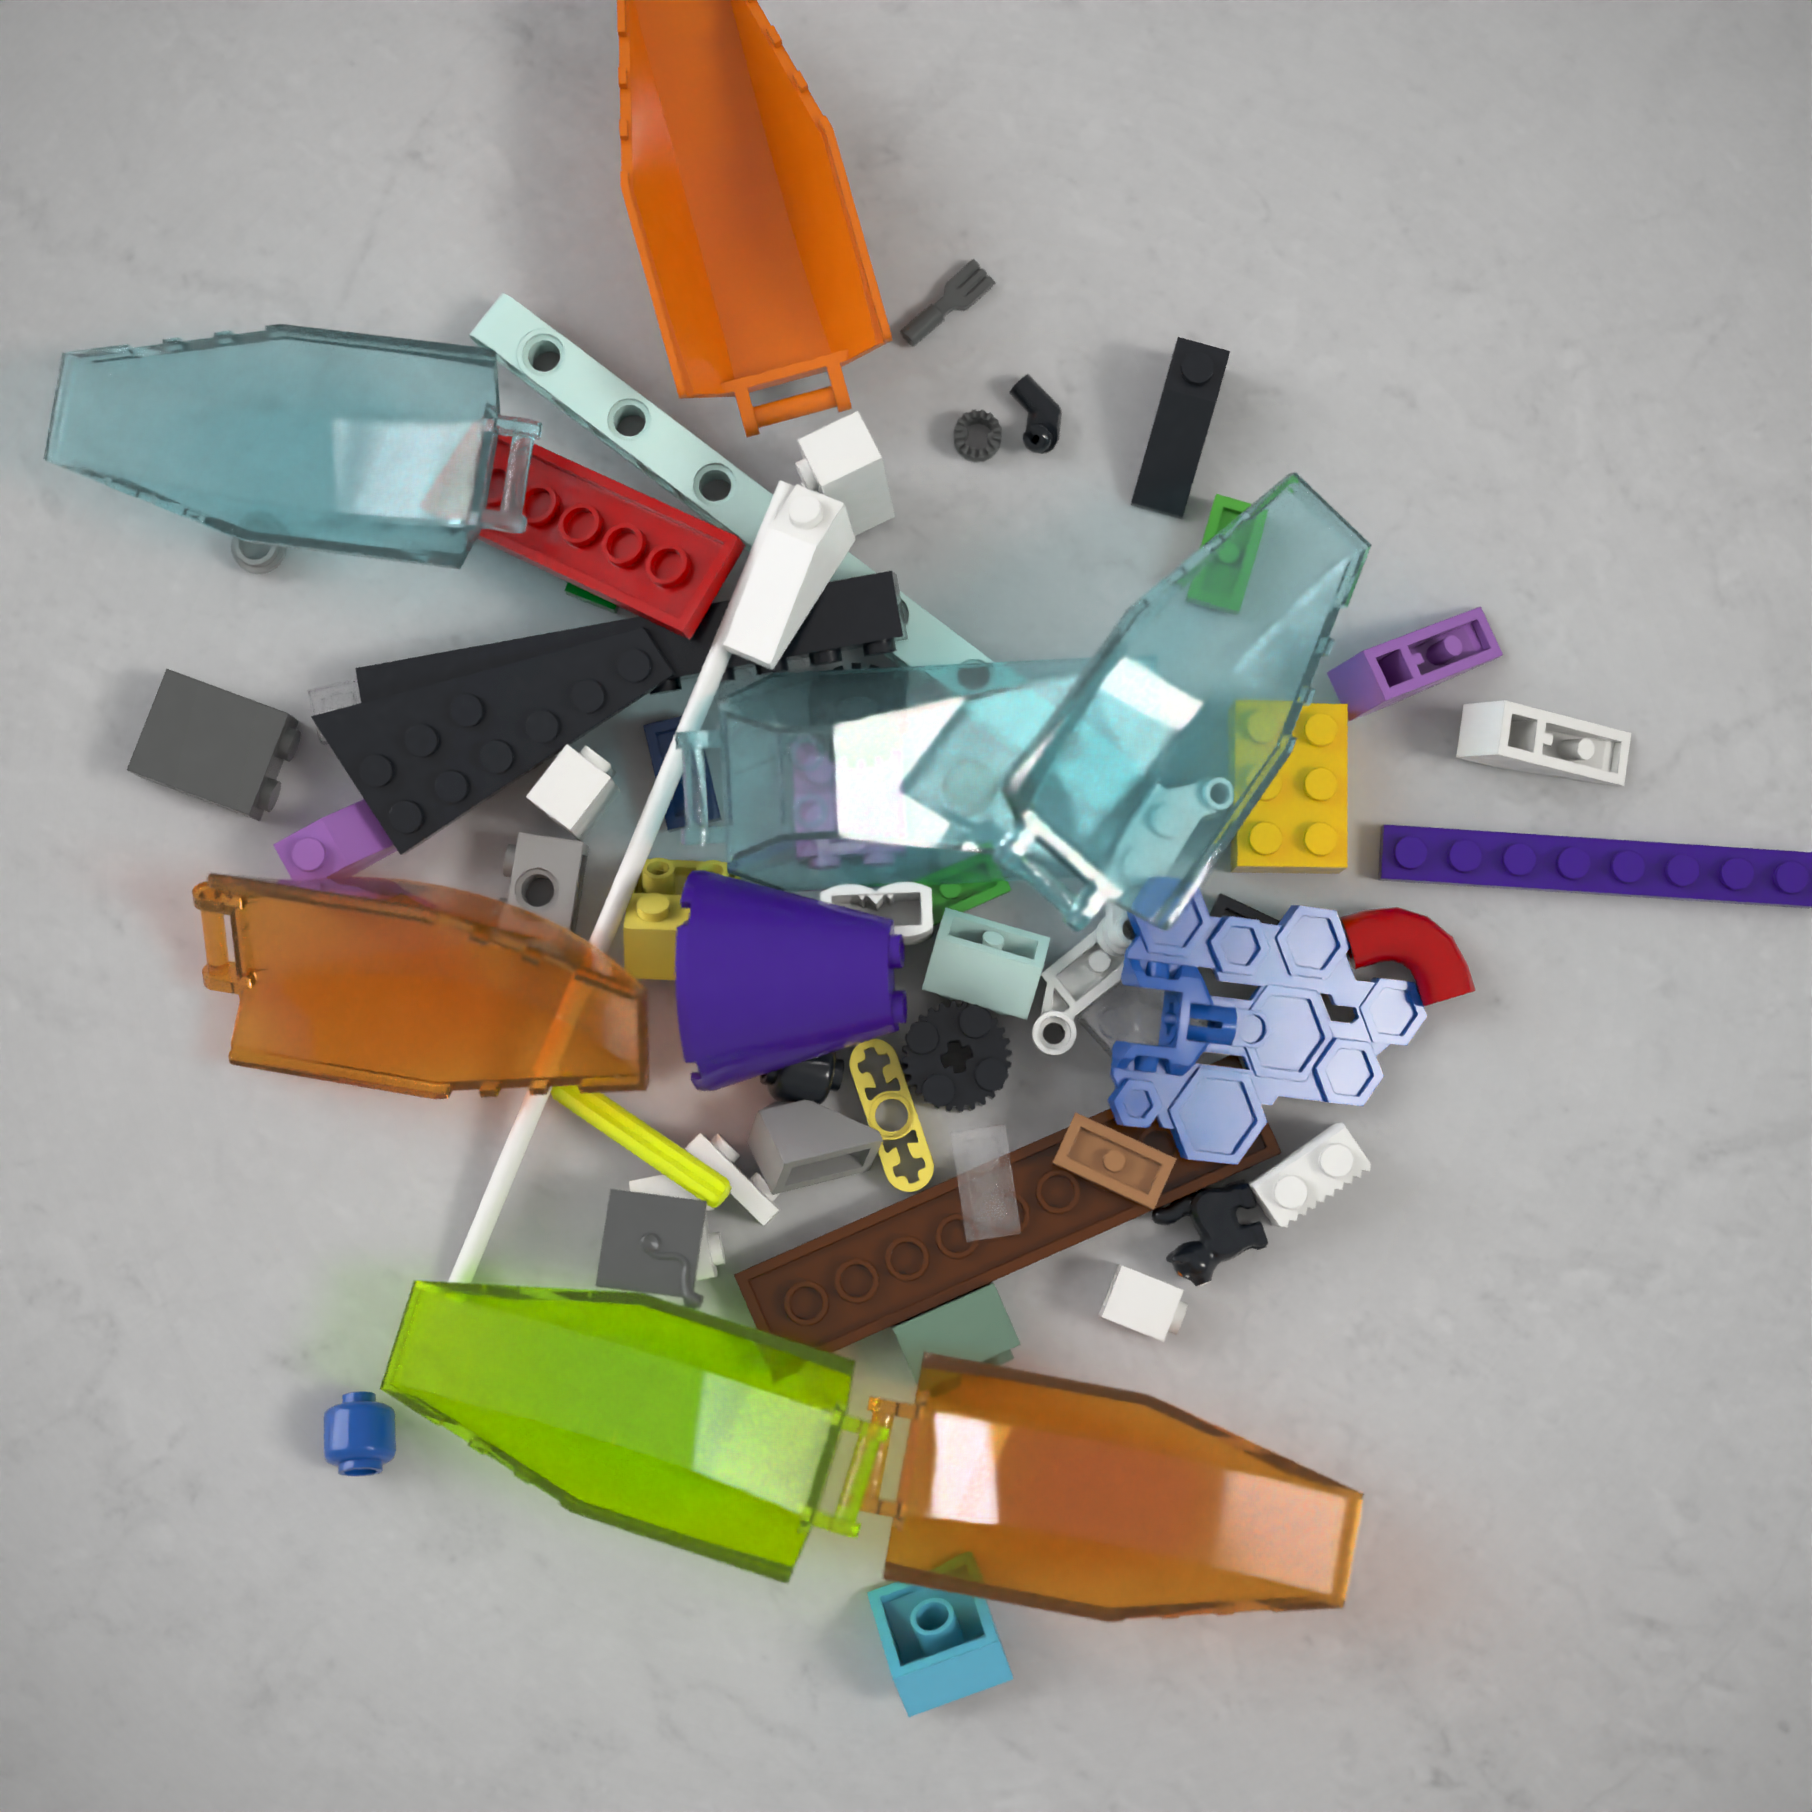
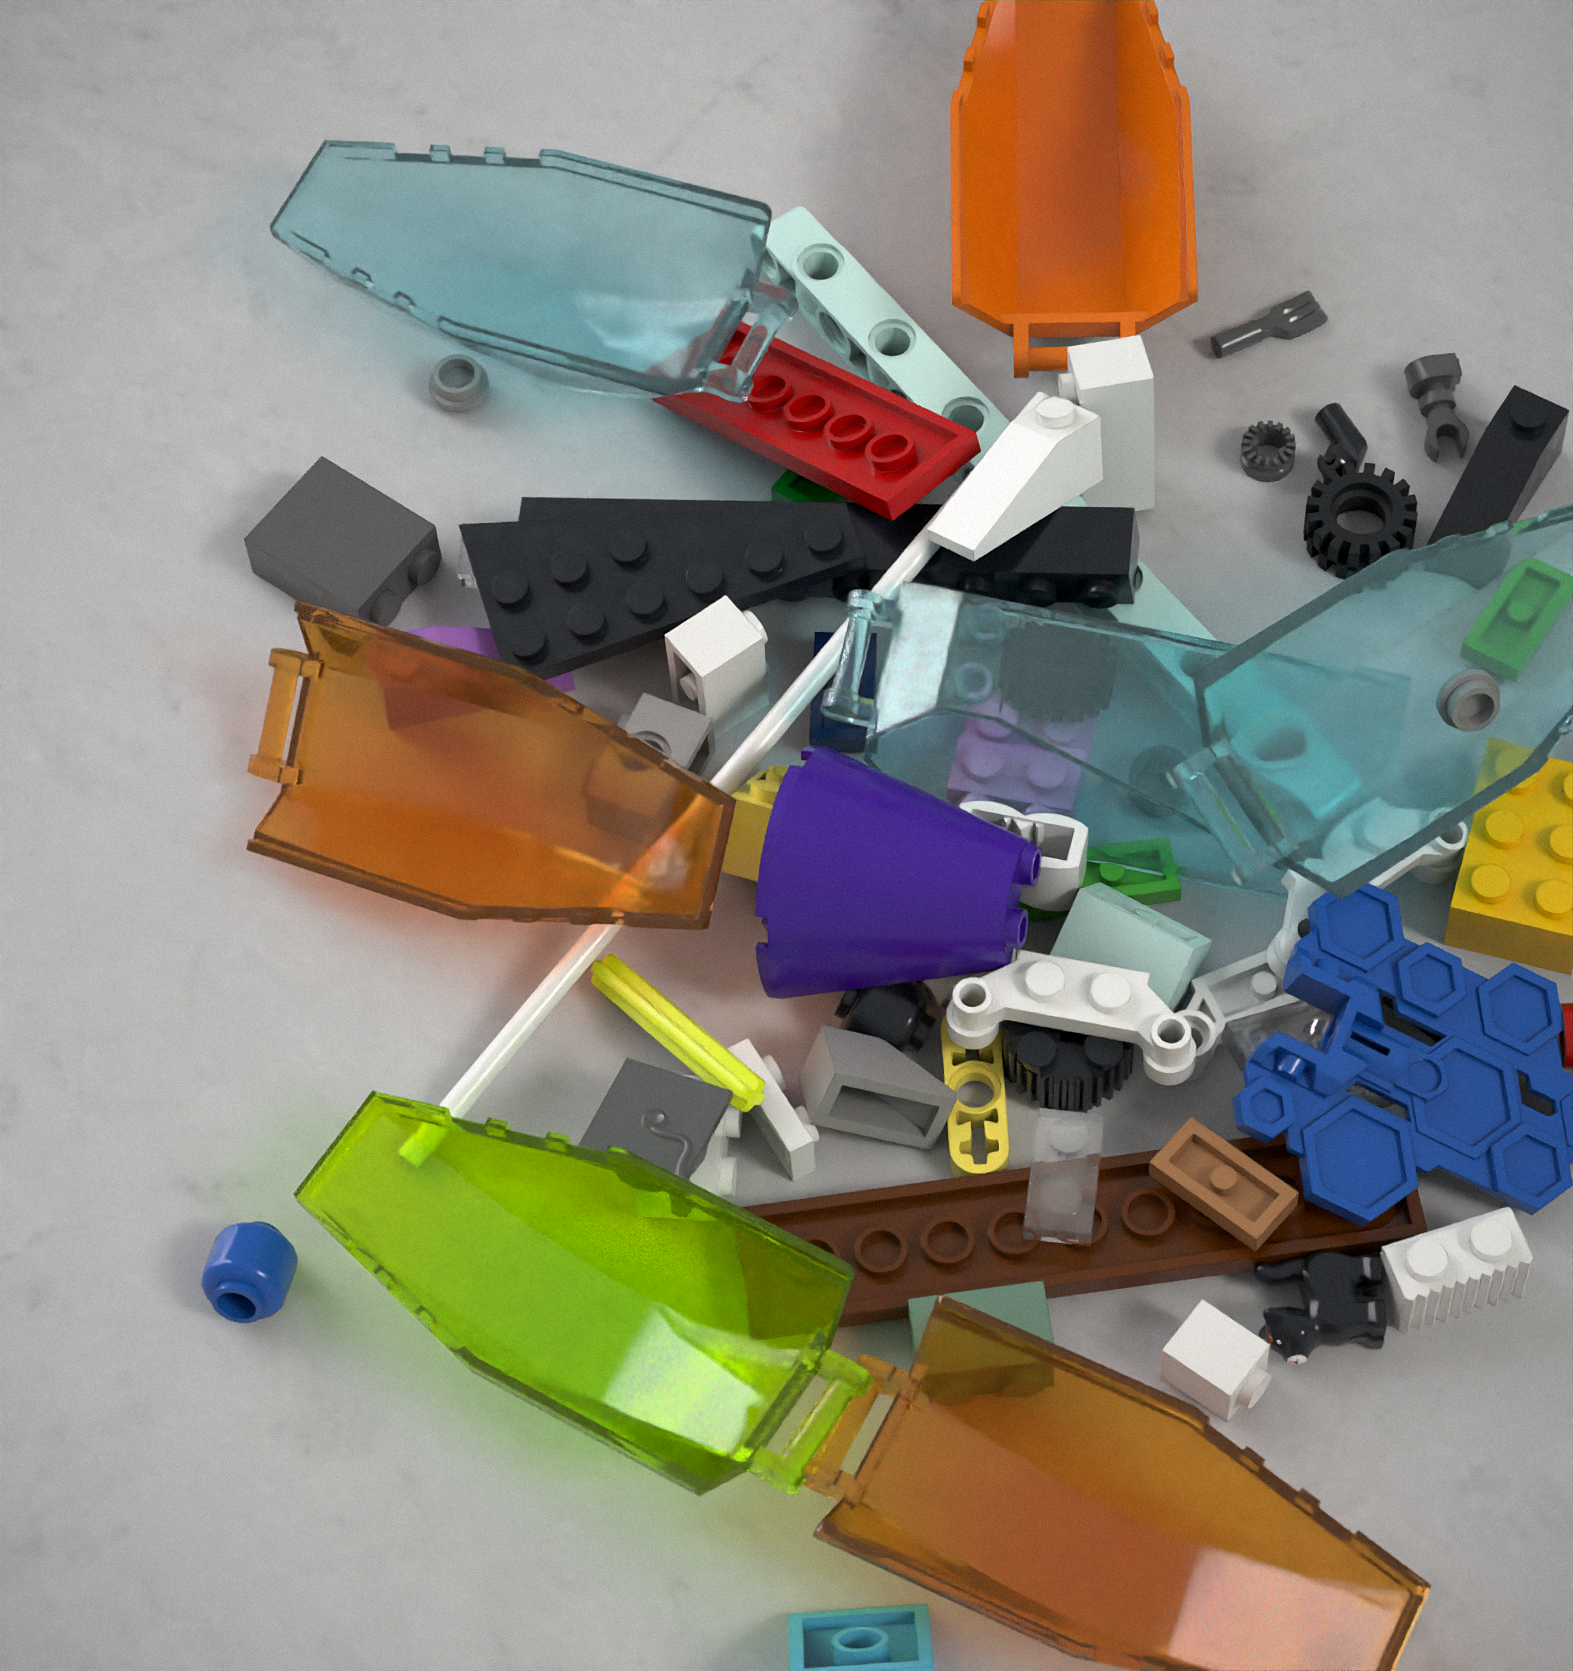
camera: 20 degrees right, 25 degrees down
(961, 1041) = (1075, 999): none -> white plate
(1078, 459) = (1364, 493): none -> black tyre
(1101, 330) = (1433, 382): none -> dark grey piece
(1212, 676) = (1469, 700): none -> light grey plate

